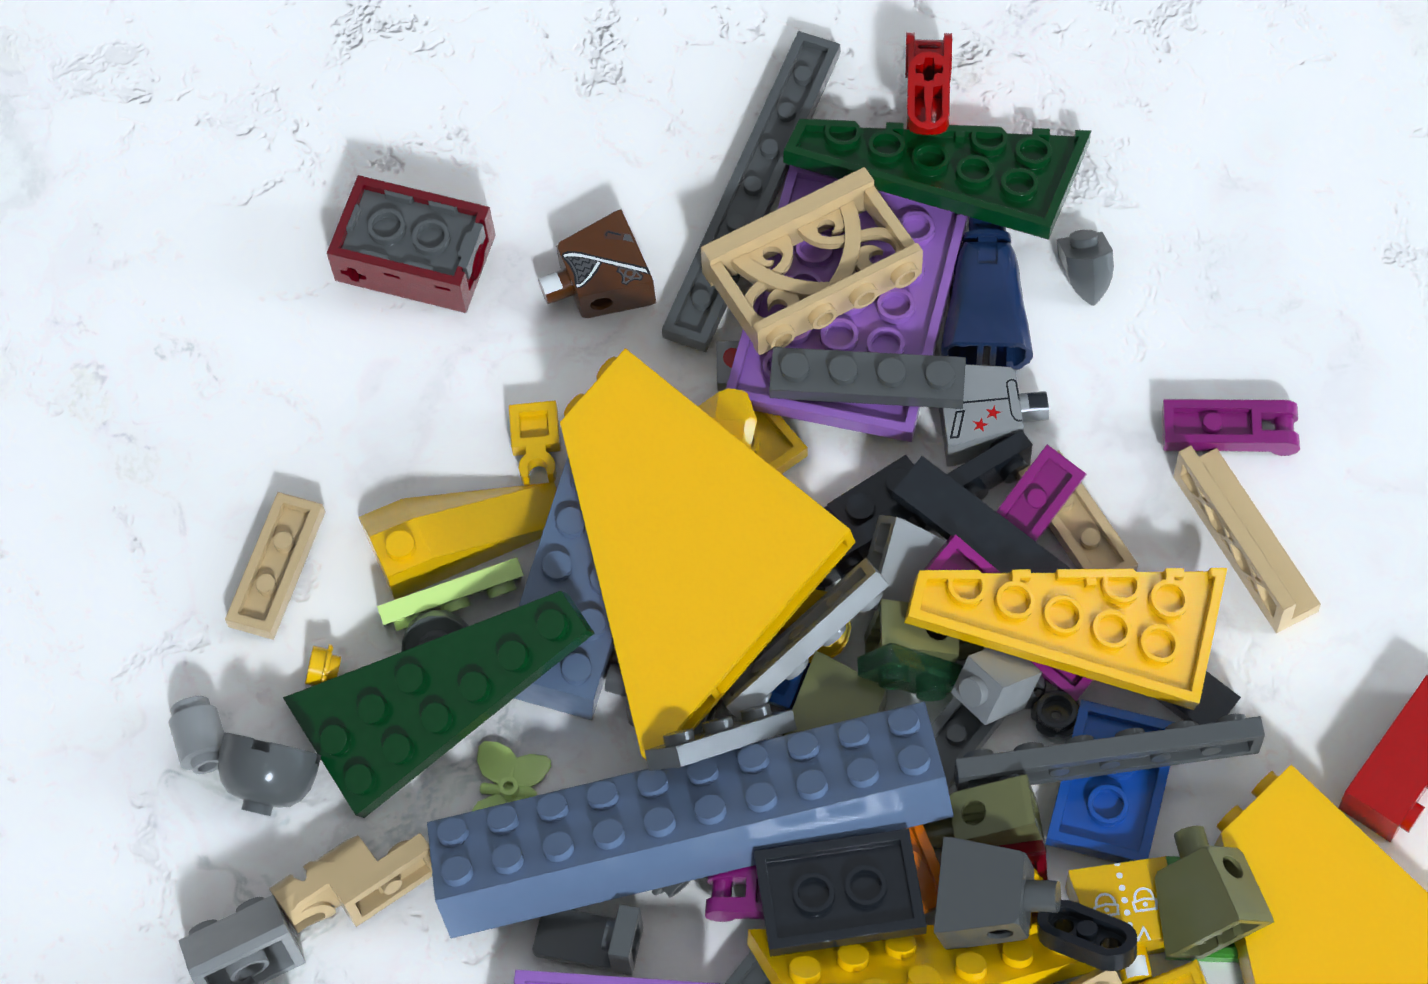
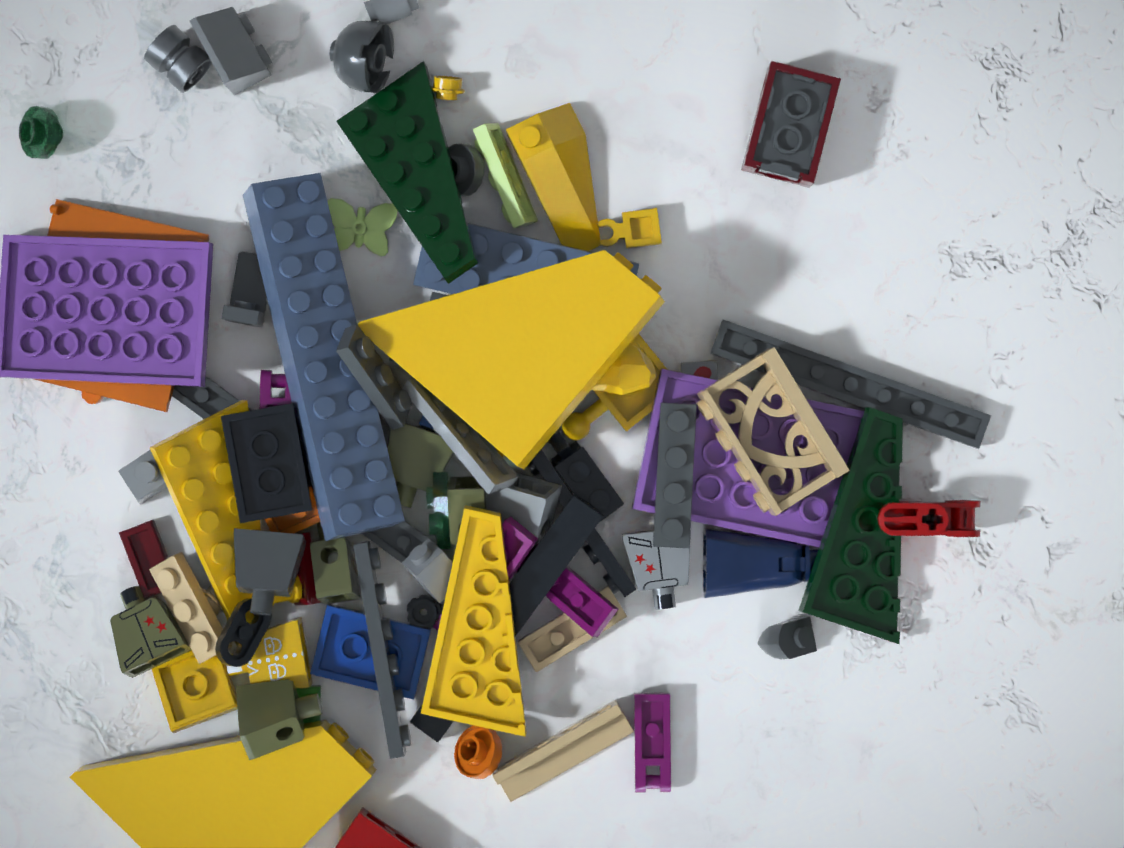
camera: 85 degrees right, 25 degrees up
(275, 565) = (526, 45): tan plate -> none
(354, 880) = (286, 120): tan plate -> none
(601, 270) = (774, 270): reddish brown torso -> none
(1252, 640) = (478, 752): none -> orange plate

